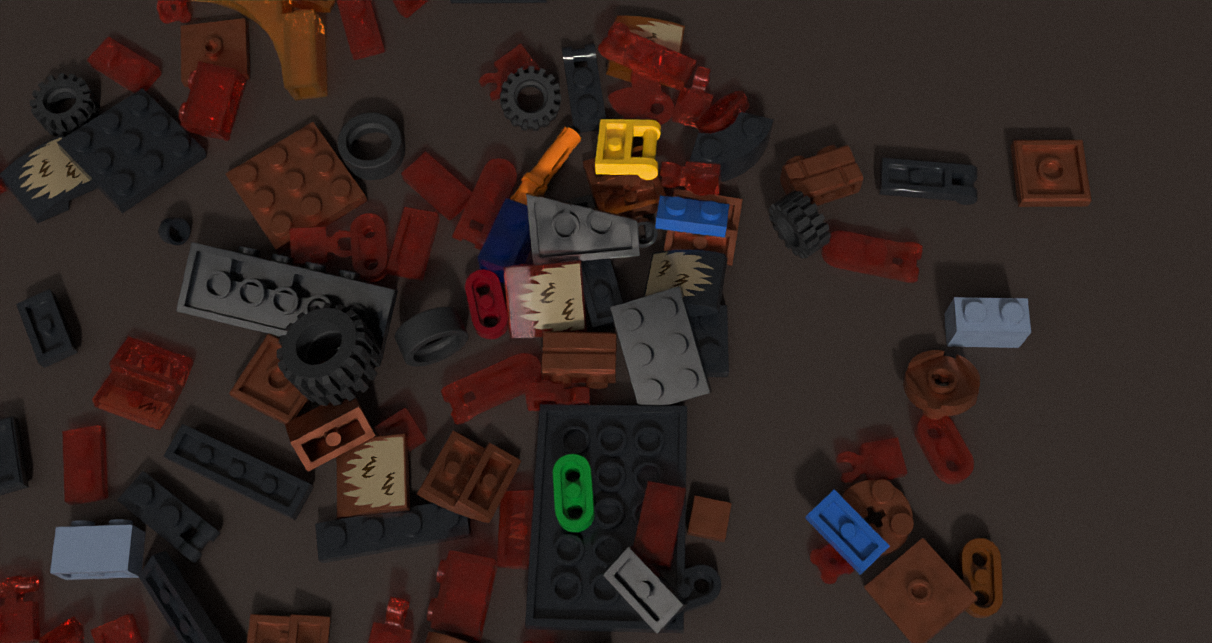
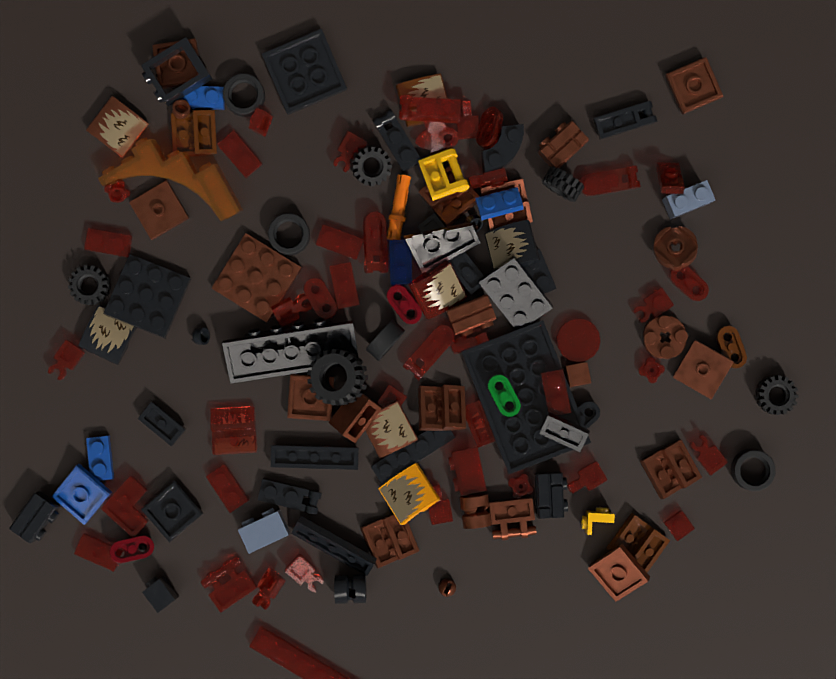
camera: 25 degrees left, 20 degrees up
(212, 101) = (179, 246): clear red brick -> none
(351, 590) = (409, 493): none -> slope
(731, 465) = (578, 340): none -> clear red tile
(847, 532) = (654, 354): blue plate -> none
(969, 278) = (670, 178): none -> clear red plate

